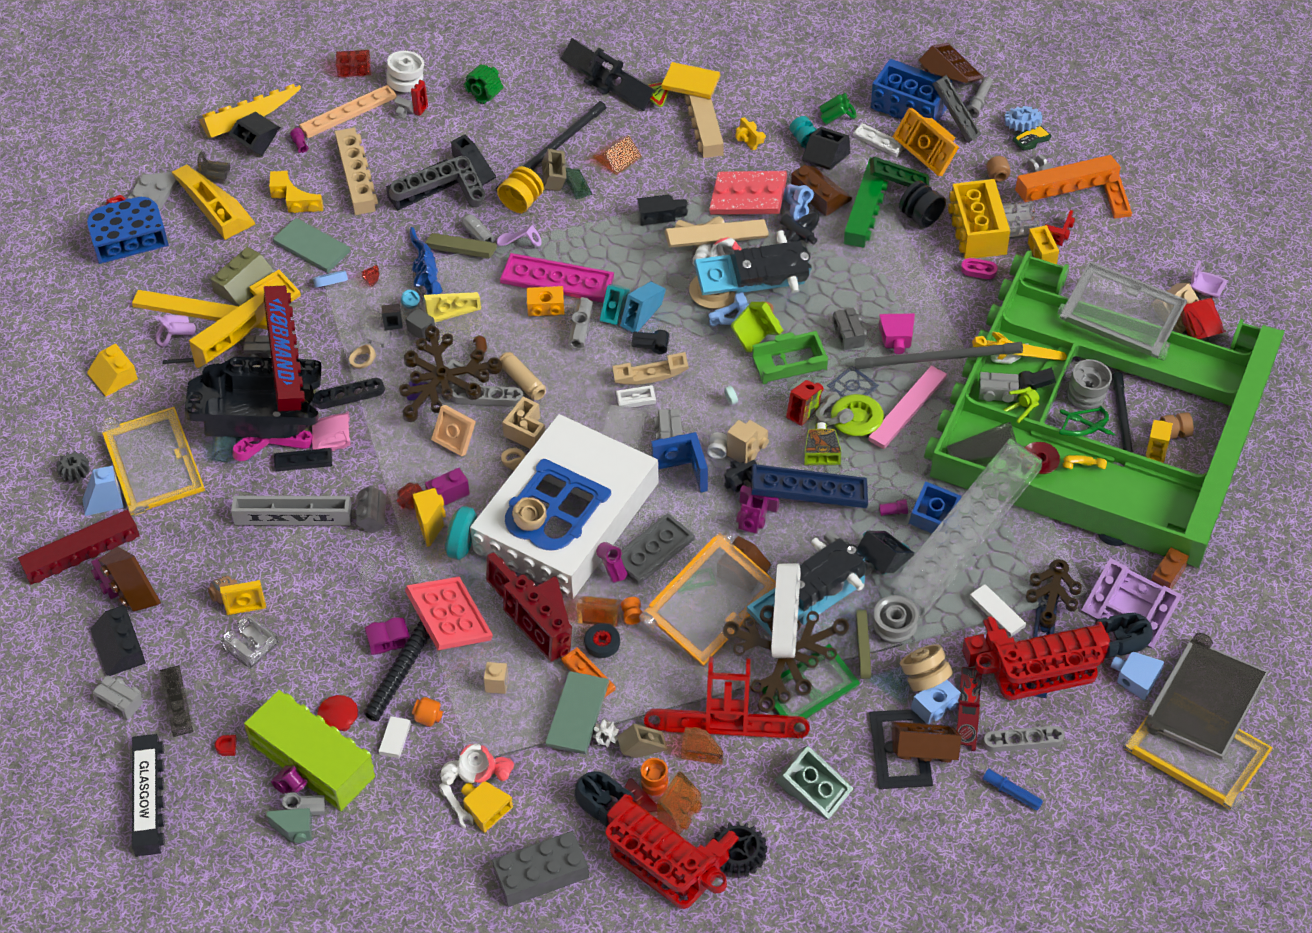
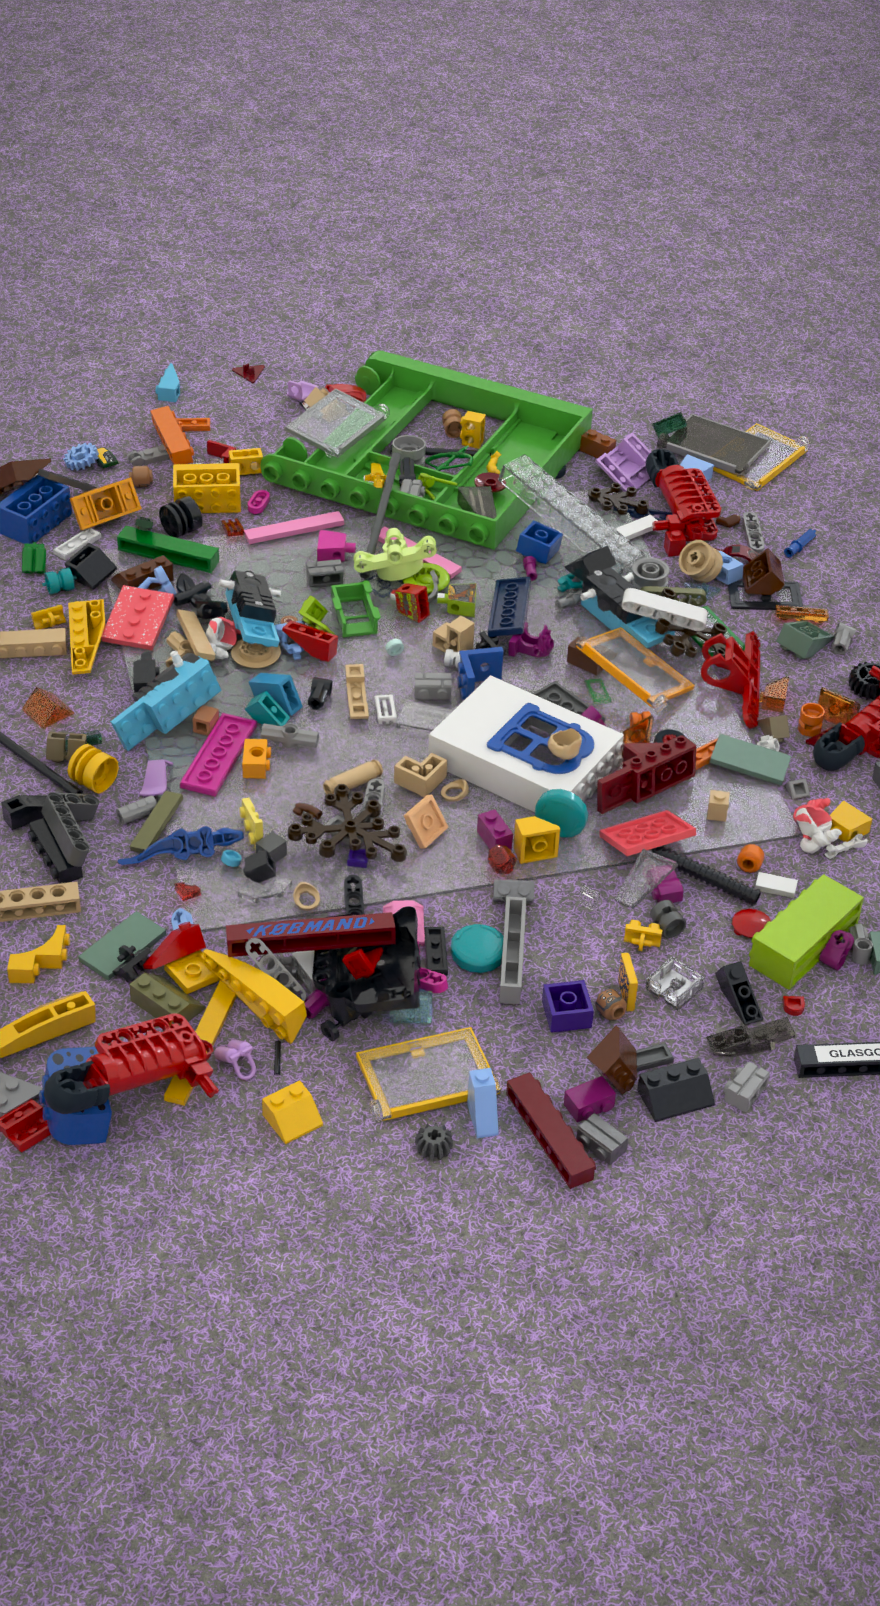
camera: 90 degrees left, 10 degrees down
(65, 585) = (602, 1139): none -> flat silver brick
(130, 247) = (133, 1064): none -> red piece
(164, 625) = (653, 1057): none -> dark grey tile
(218, 553) = (567, 1006): none -> dark purple brick
(241, 693) = (739, 992): none -> black slope
(248, 328) = (278, 967): none -> light grey beam
(254, 397) = (361, 963): none -> red bracket
(283, 247) = (138, 958): none -> black hips
(297, 275) = (176, 945): none -> red slope
(300, 481) = (477, 948): none -> teal piece
(312, 616) = (642, 935): none -> yellow hips
(336, 635) = (668, 918): none -> dark grey wheel
(385, 611) = (644, 877): none -> clear wing
(546, 764) = (797, 789): none -> light grey slope
(599, 258) = (205, 720): none -> nougat brick
(608, 221) = (167, 699): none -> medium azure piece
(715, 159) = (86, 631): none -> yellow wedge
(721, 324) = (312, 640): none -> red slope
(760, 239) = (211, 609): none -> black hips
(821, 823) = (843, 636): none -> light grey piece
(861, 781) = (801, 613): none -> clear orange plate
(873, 381) = (398, 559): none -> yellowish green piece
(927, 251) = (232, 524): none -> clear red tile
(933, 300) = (294, 527): none -> bright pink tile
(1044, 714) = (729, 521): none -> reddish brown arm
(1186, 171) = (169, 385): none -> medium azure slope
(1228, 645) = (670, 424): none -> clear green slope
(1244, 239) = (248, 372): none -> dark red piece

